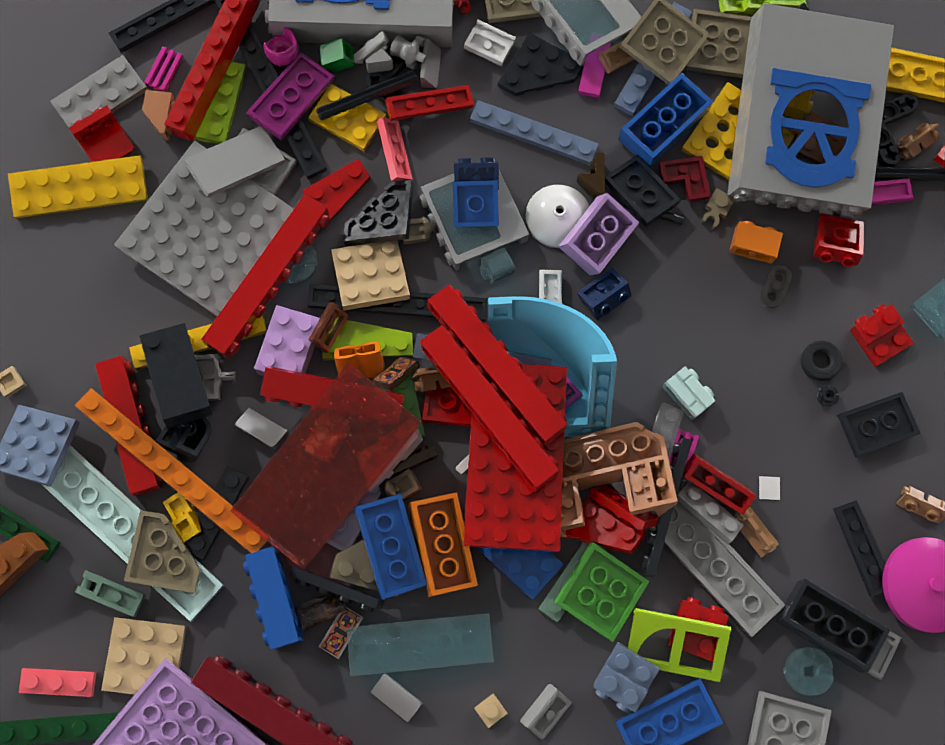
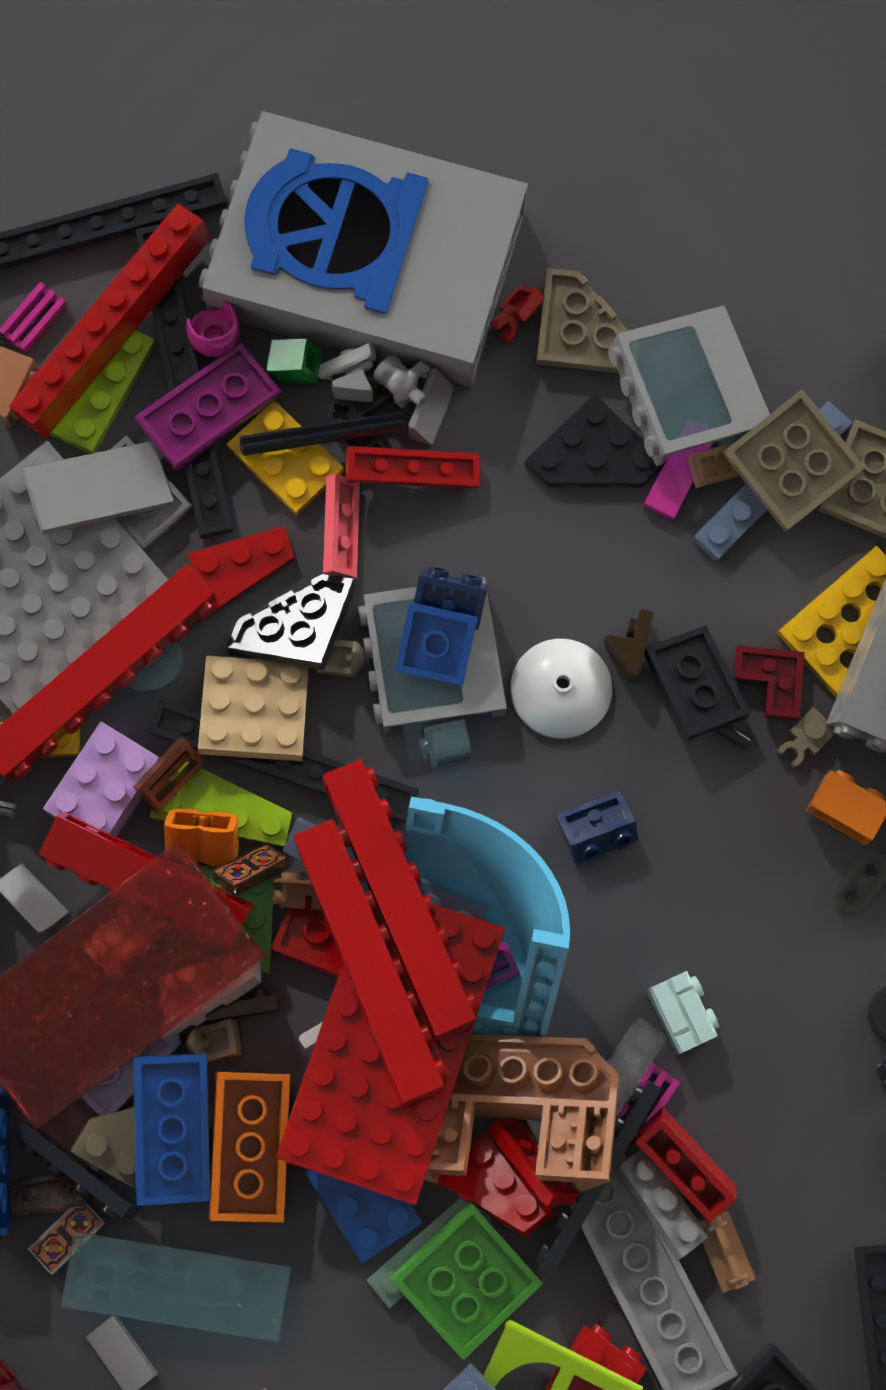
camera: 15 degrees right, 0 degrees up
(489, 42) = (529, 396): white plate -> none
(533, 132) = (559, 551): sand blue plate -> none
(550, 285) = (517, 800): white plate -> none
(598, 234) = (611, 735): lavender brick -> none
(665, 120) = (764, 562): blue brick -> none
(769, 488) = (766, 1189): white sticker -> none

